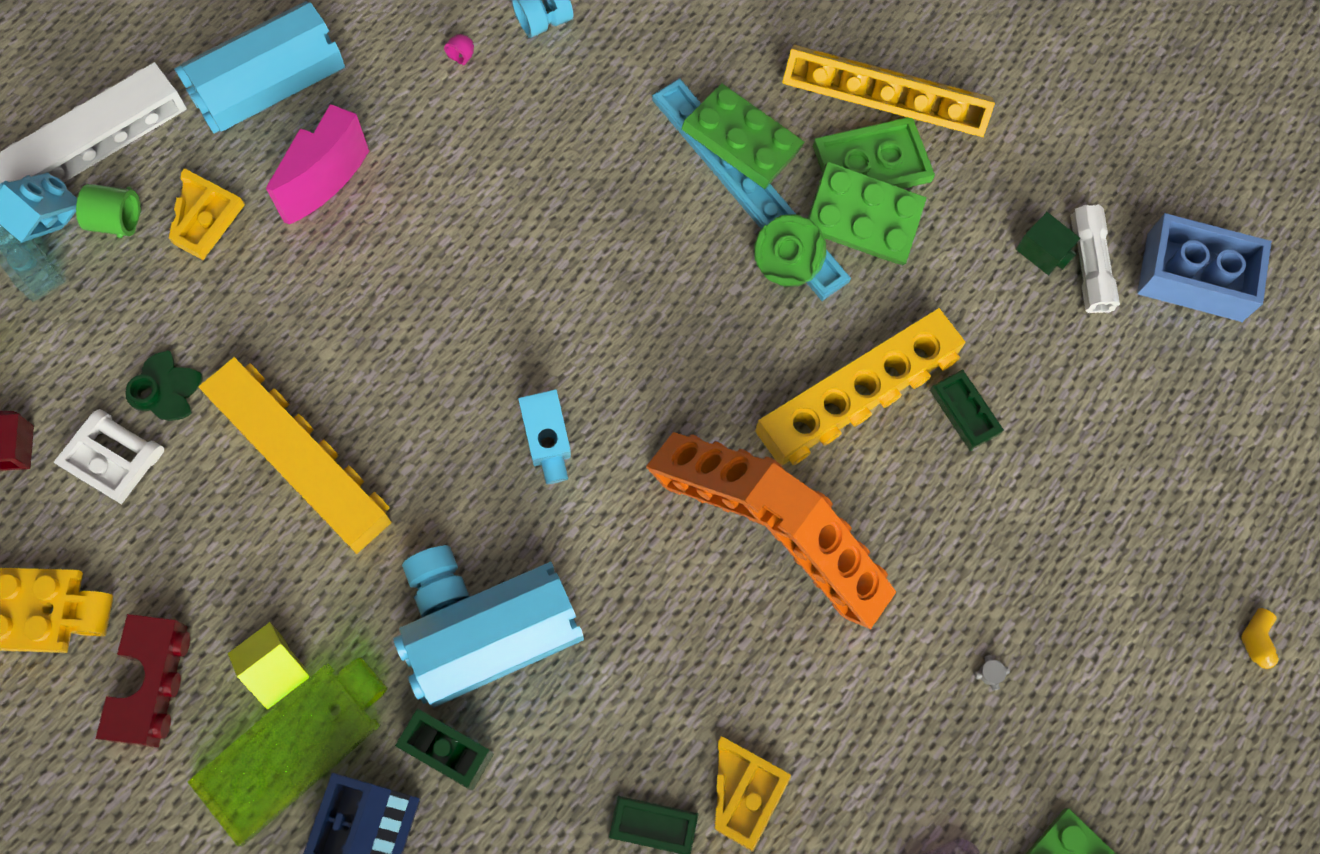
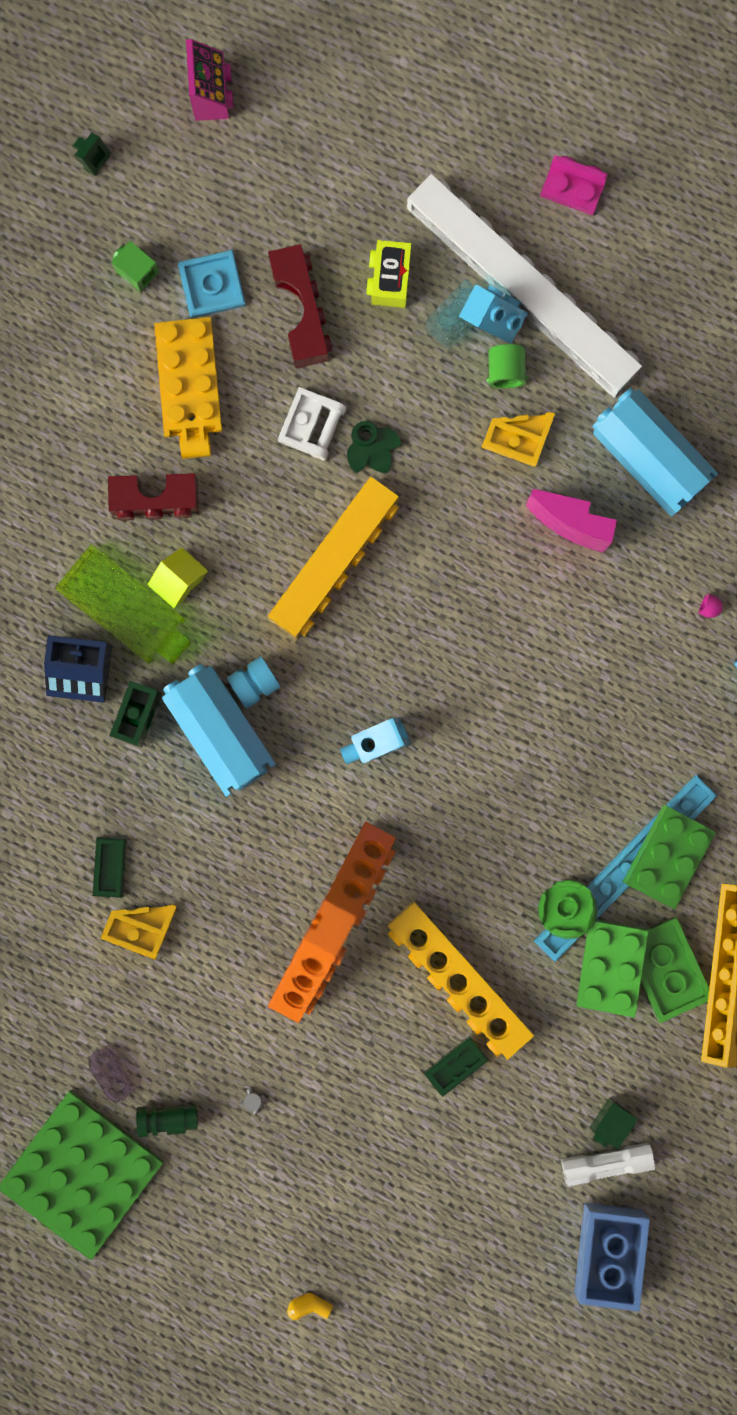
camera: 85 degrees right, 15 degrees up
(1010, 787) = (169, 1119): none -> dark green axle

